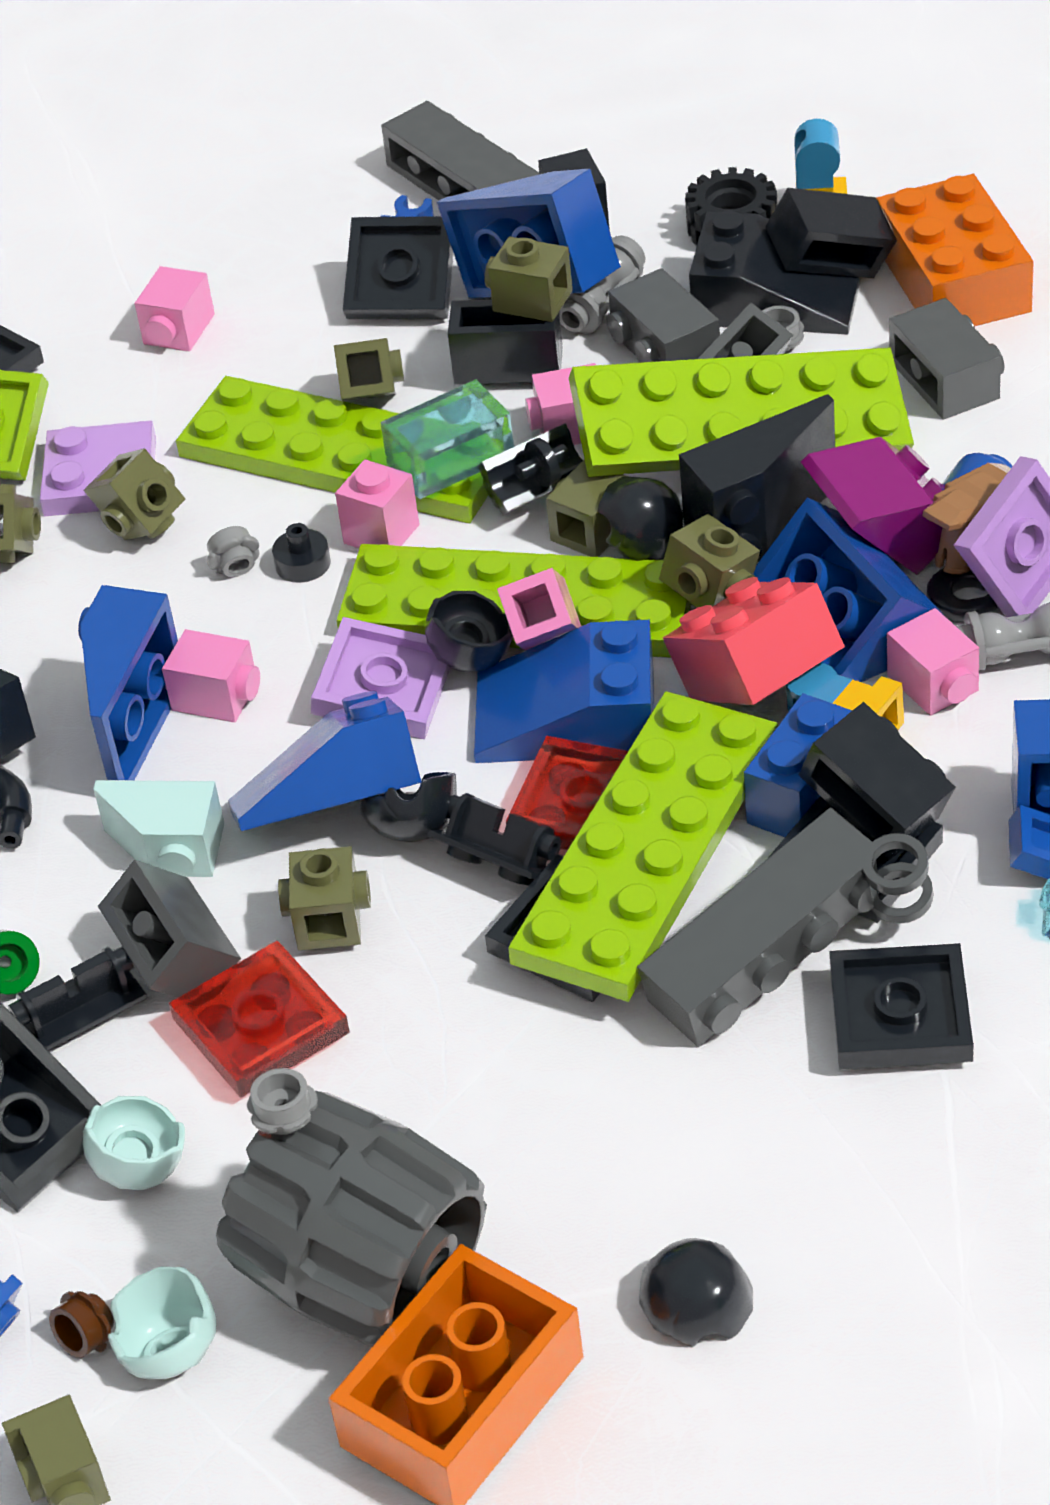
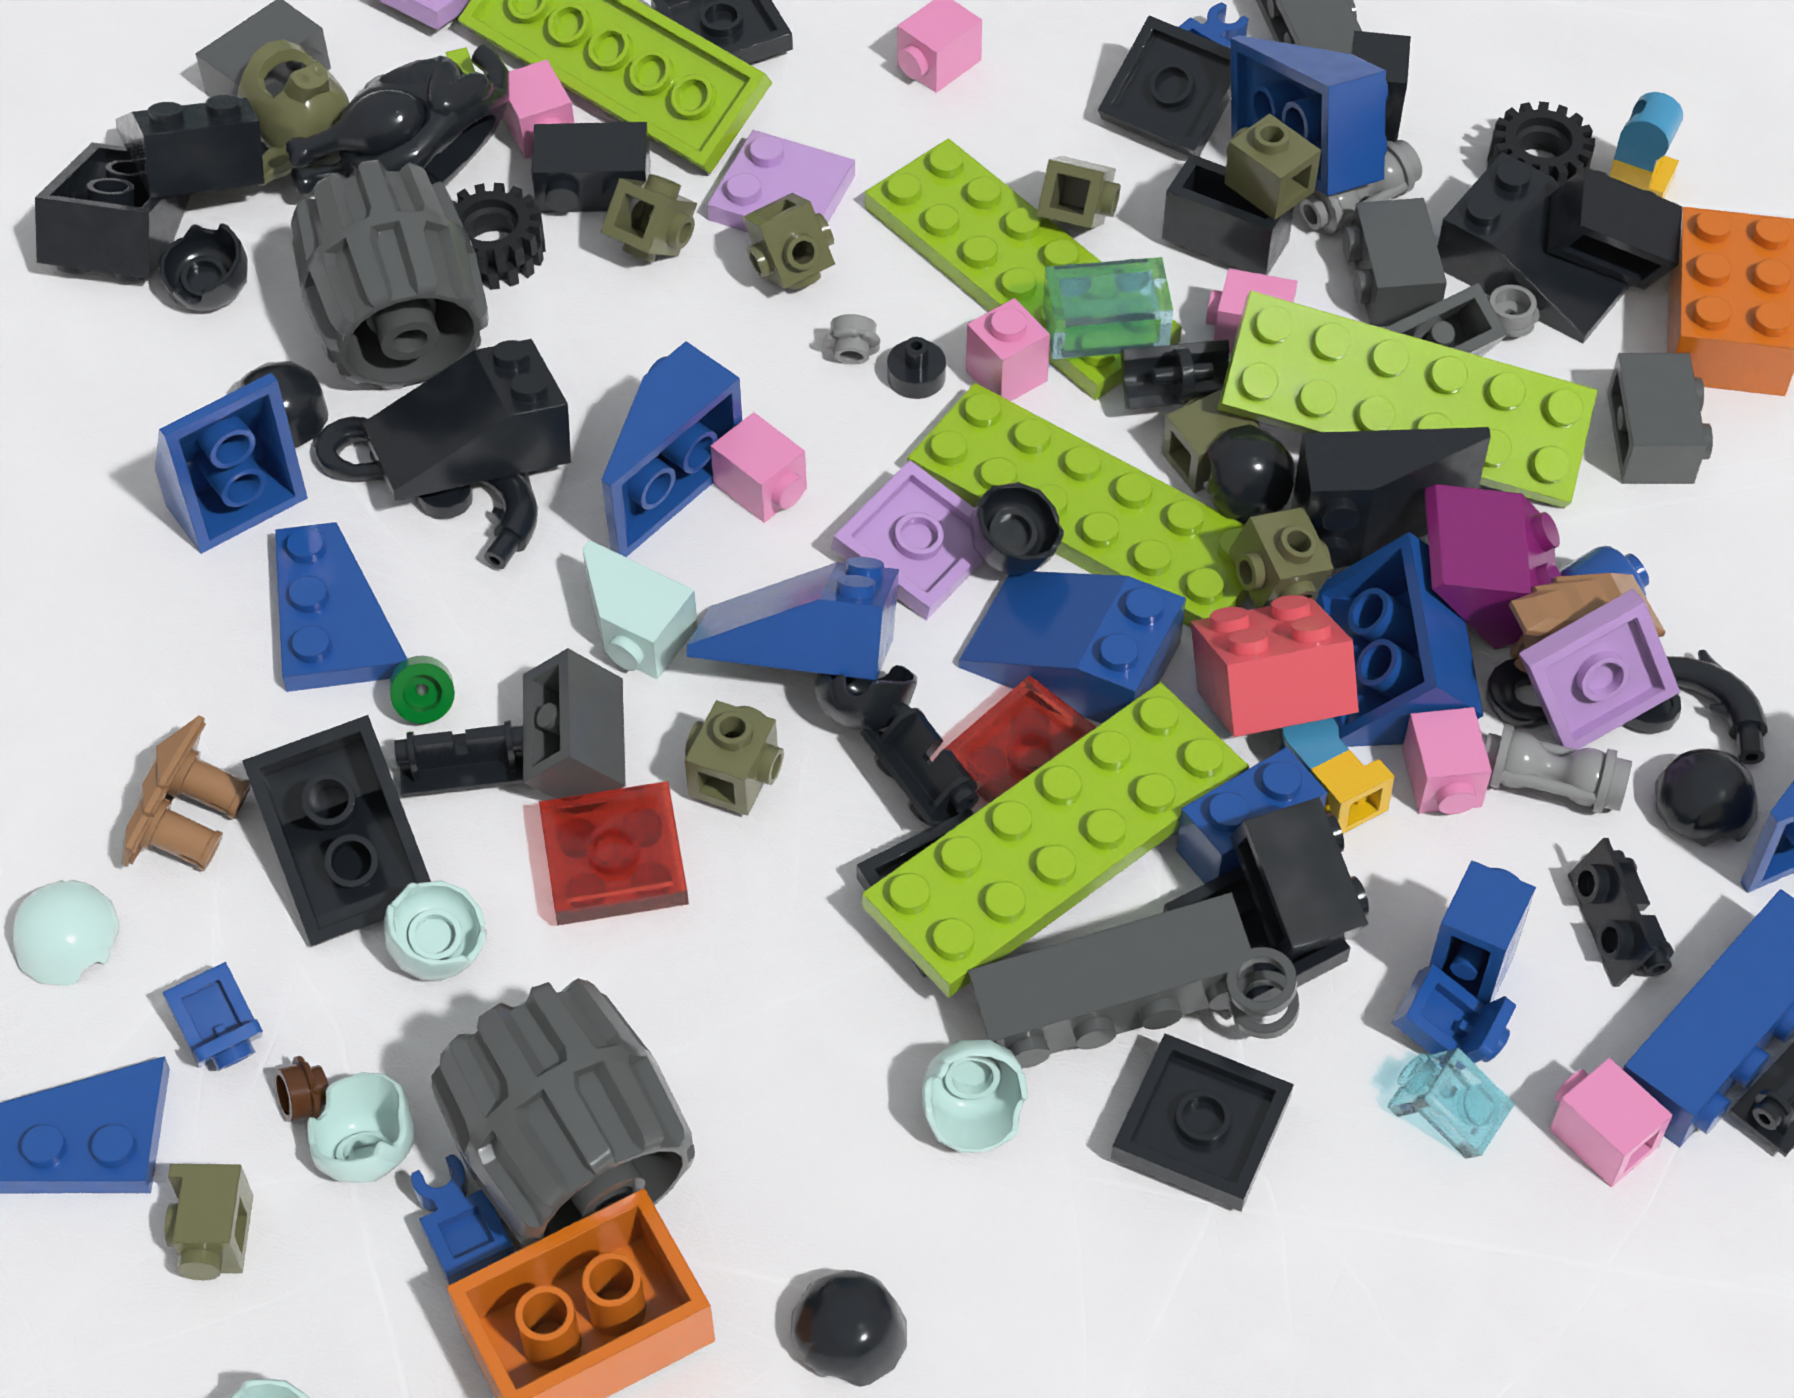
camera: 20 degrees right, 10 degrees up
(281, 1101) = (521, 975): light grey plate -> none
(296, 1368) = (461, 1228): none -> blue plate
(538, 608) = (1087, 541): bright pink brick -> none
(697, 1063) = (974, 1095): none -> light aqua hair

